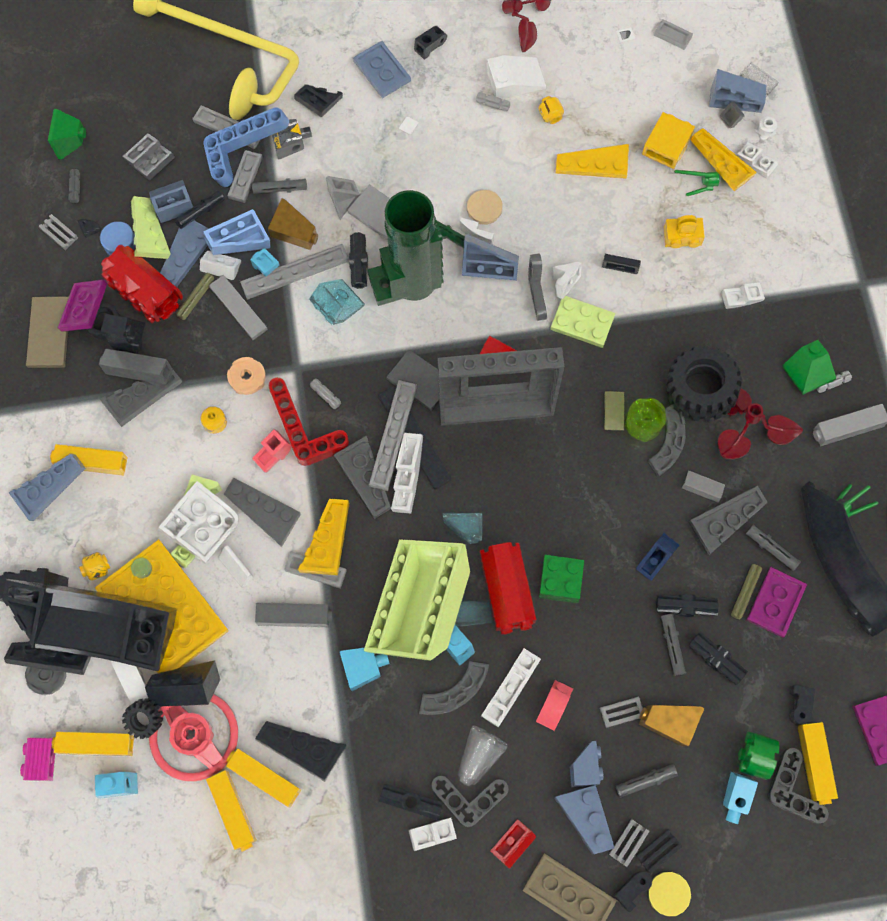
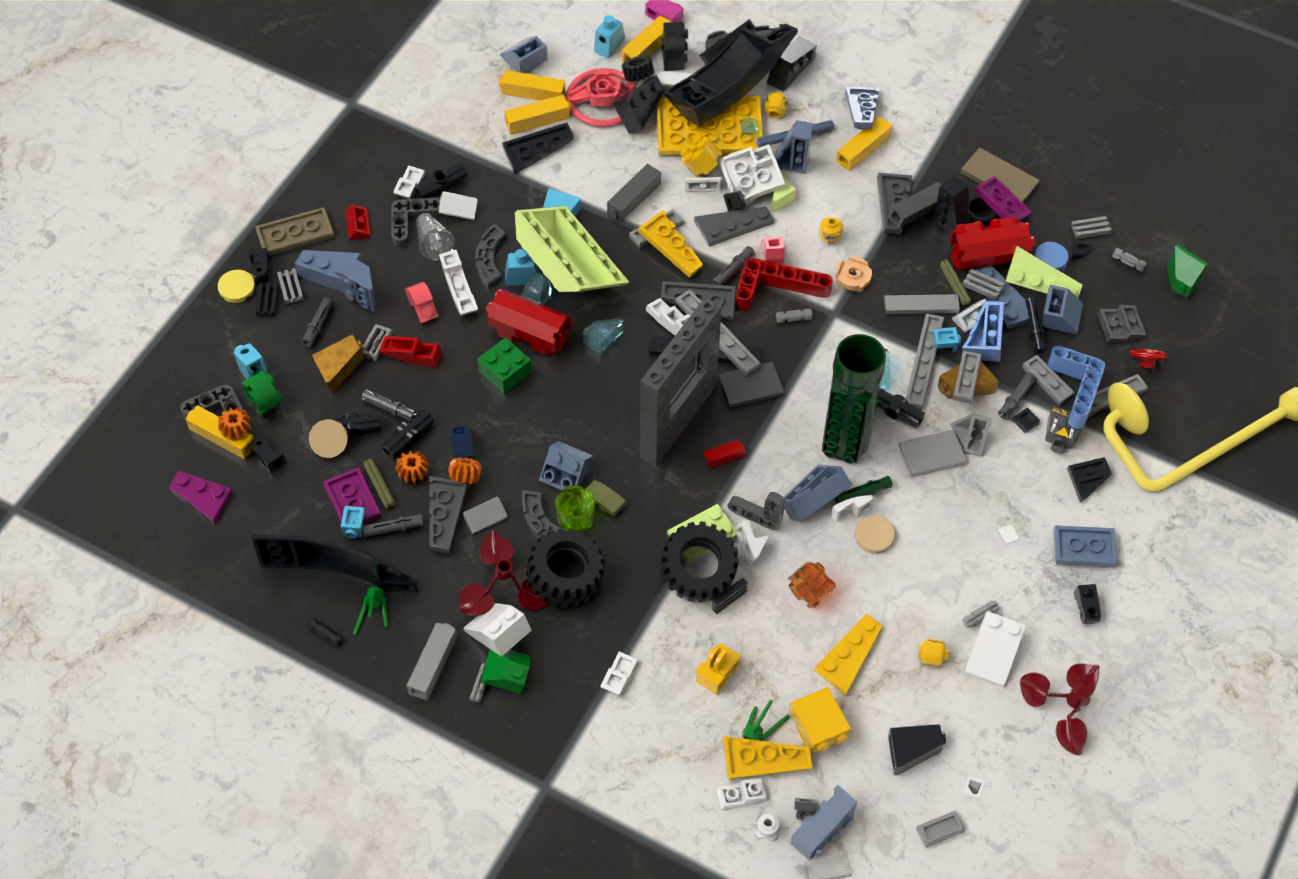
camera: 125 degrees right, 15 degrees down
(89, 705) = (674, 46): none -> black wedge
(121, 524) = (778, 137): none -> sand blue axle
(145, 503) = (795, 148): none -> sand blue wedge
(173, 116) = (1148, 357): none -> red piece
(186, 254) = (984, 282): none -> light grey tile
(194, 854) = (526, 54): none -> sand blue slope
(213, 579) = (701, 156): none -> yellow brick
(240, 520) = (734, 200): none -> black tile
(296, 169) = (1026, 420): none -> black tile
(296, 219) = (967, 377): none -> light grey tile
(311, 473) = (737, 264): none -> dark grey pin
(429, 760) = (457, 205): none -> white slope
(569, 211) = (811, 584): none -> clear orange brick
(609, 672) = (411, 350): none -> red slope
(612, 457) = (565, 466): none -> sand blue slope
(625, 275) = (705, 537): none -> black tyre
(632, 79) = (914, 745): none -> black slope
(686, 520) = (464, 470): none -> orange gear
(708, 567) = (412, 467): none -> orange gear
(749, 662) = (328, 438): none -> tan tile
(791, 394) = (499, 628): none -> white slope
(799, 577) = (352, 521): none -> medium azure bracket
(808, 752) = (234, 423): none -> orange gear

